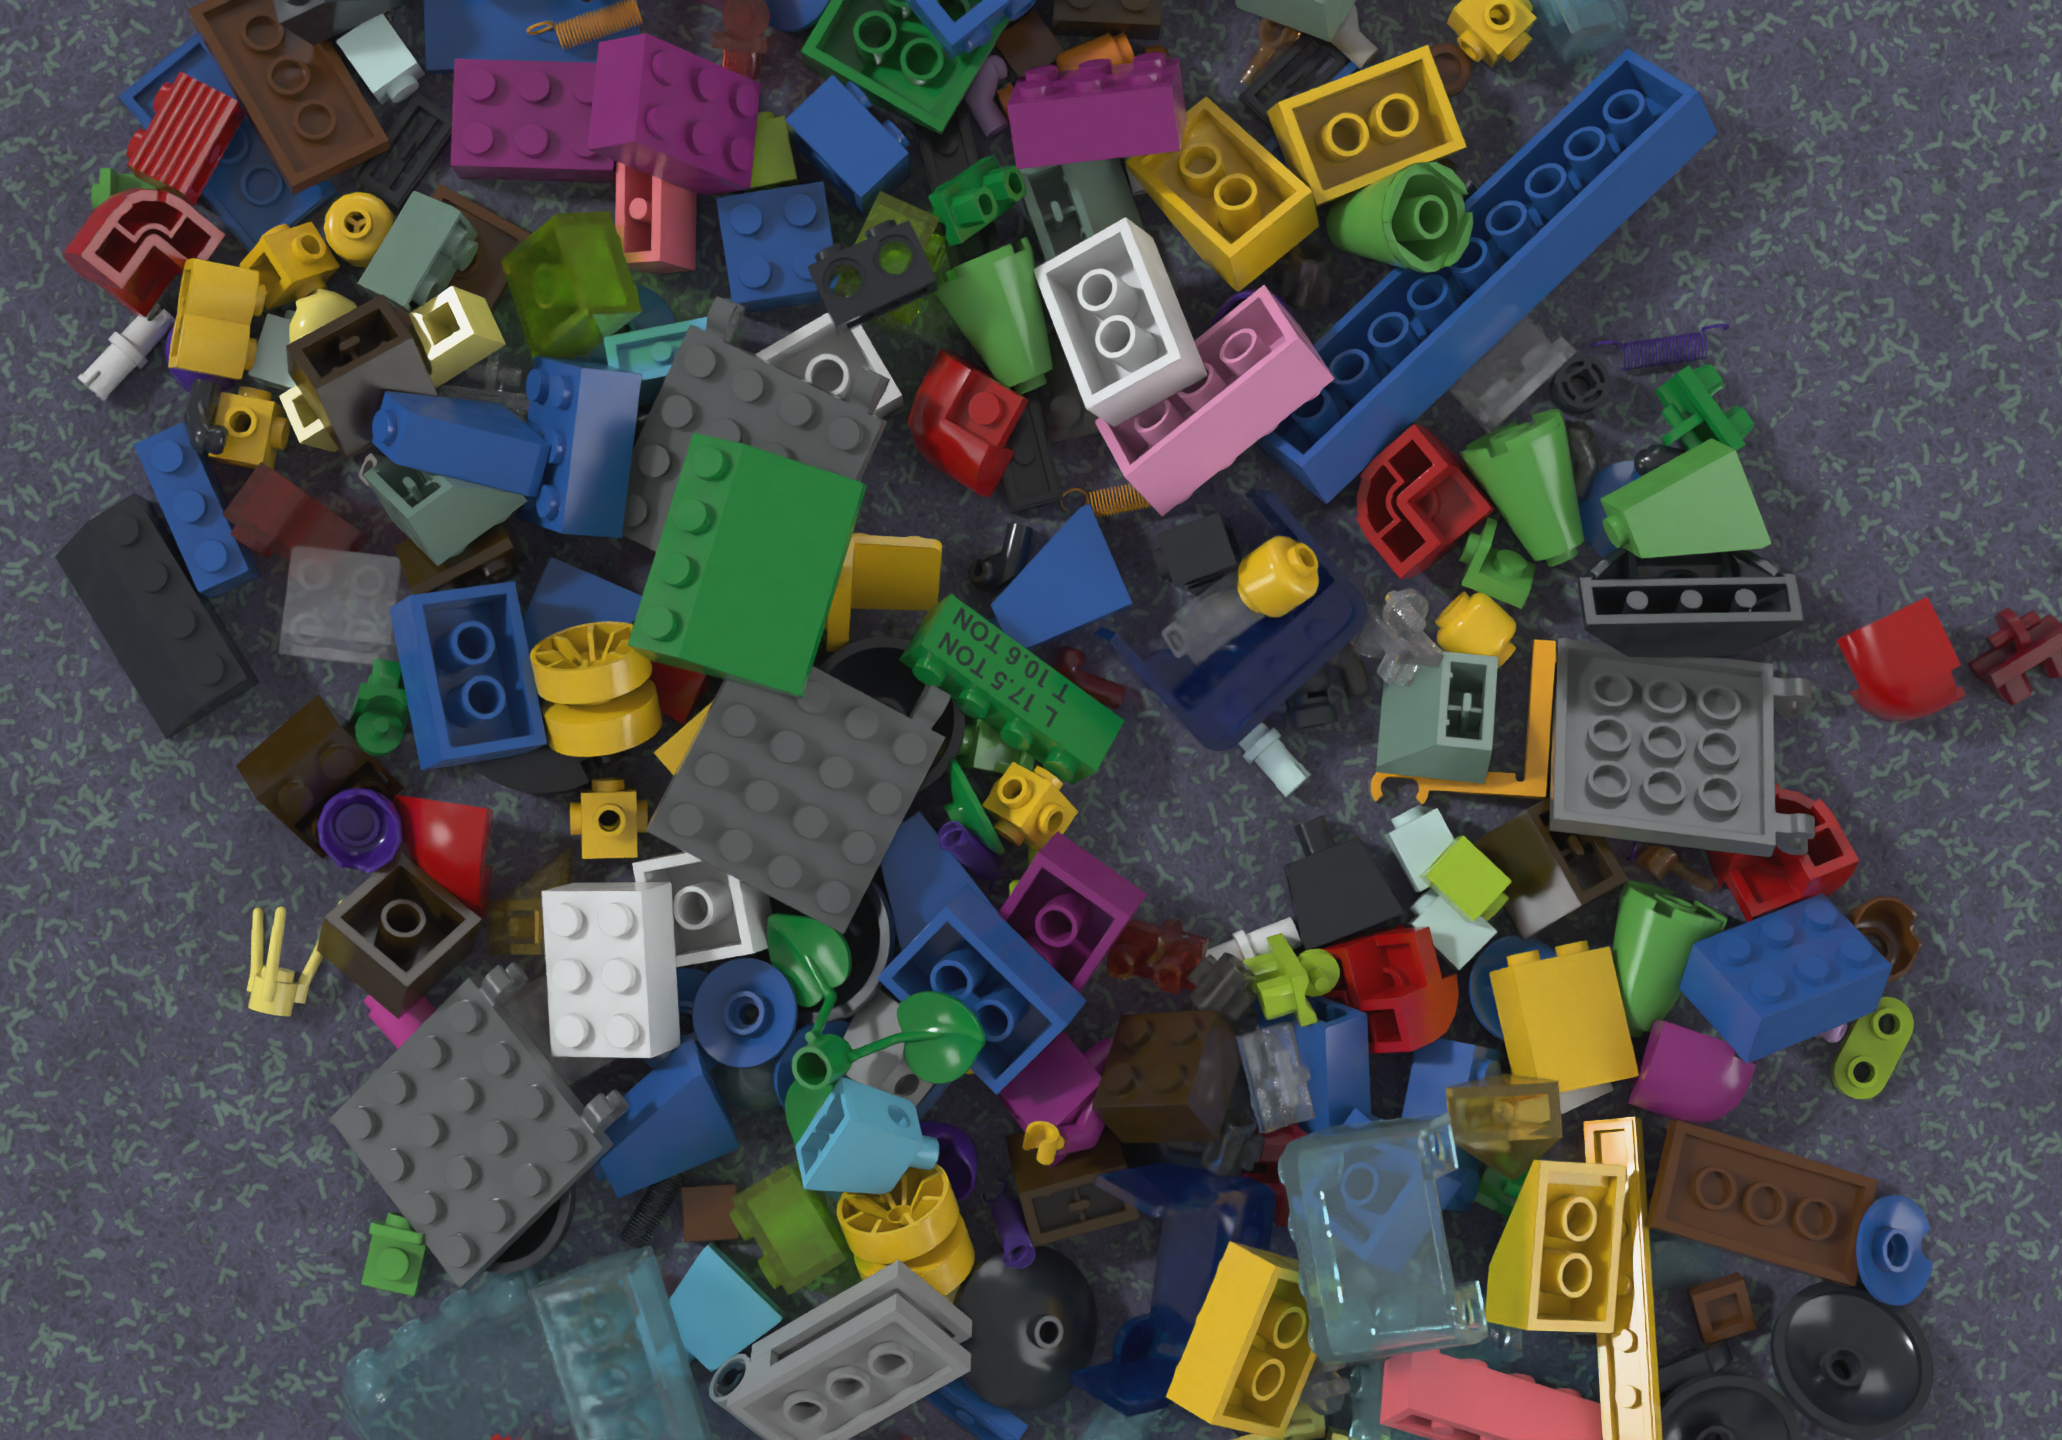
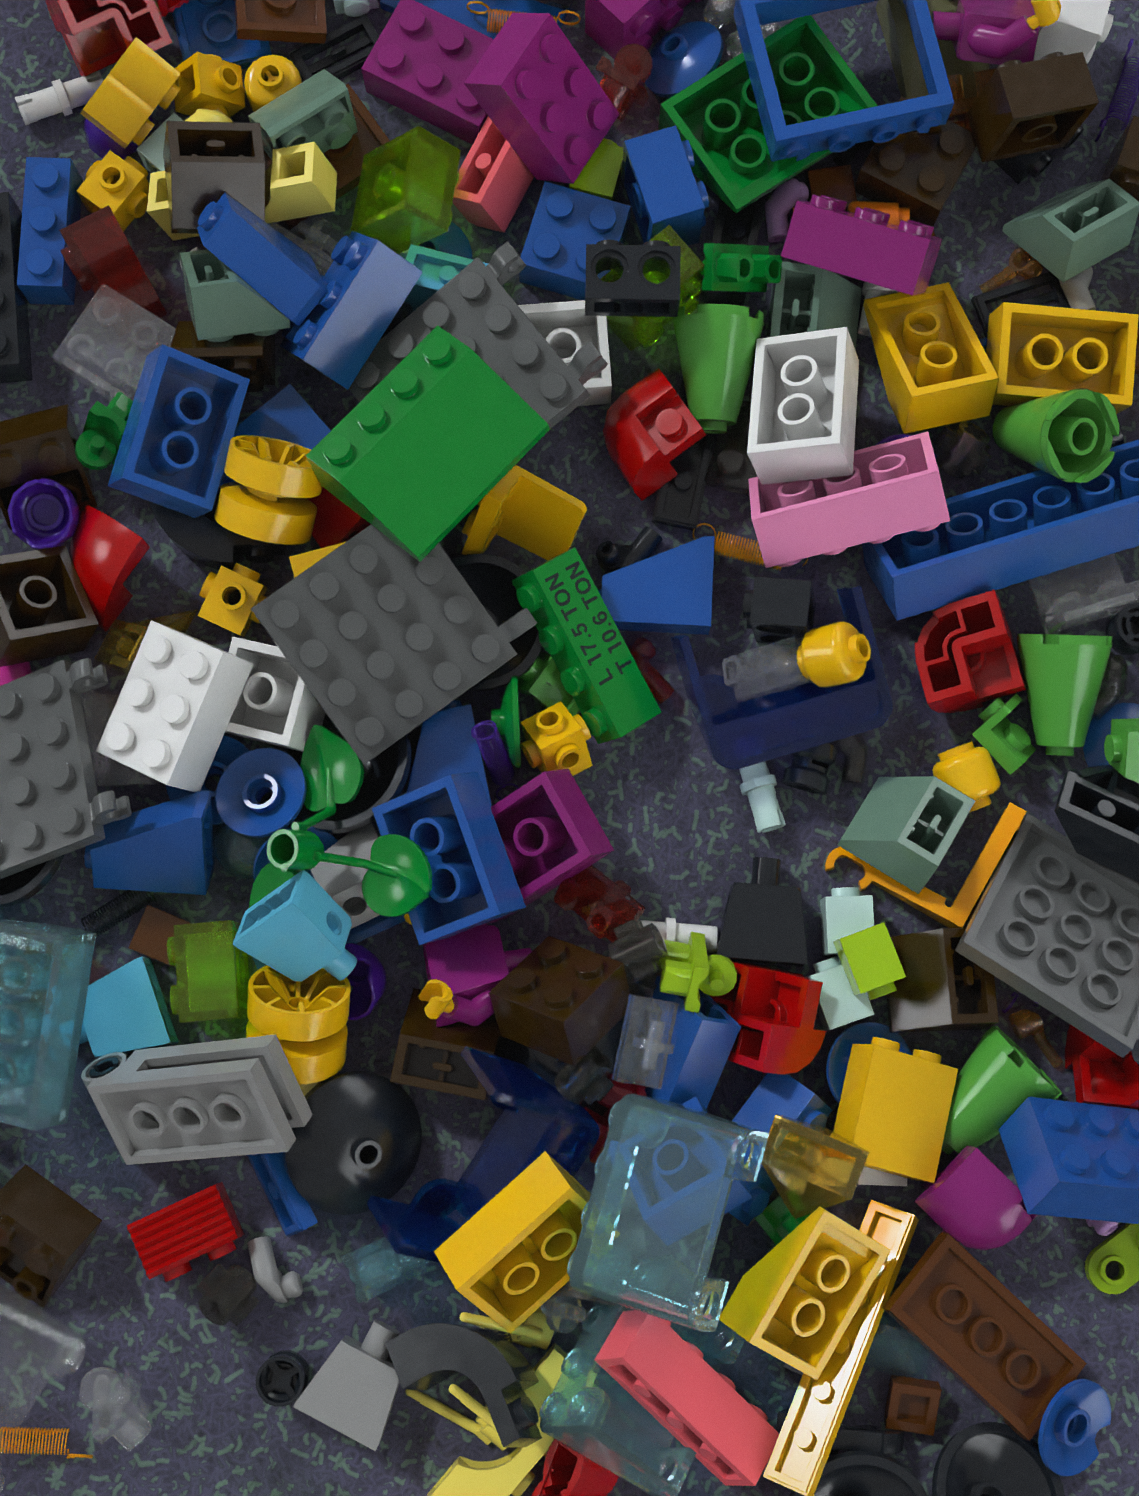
camera: 30 degrees right, 5 degrees down
(199, 418) = (84, 158): black arm -> none
(1020, 1229) = (386, 1059): dark purple piece -> none
(1398, 631) = (902, 748): clear hips -> none

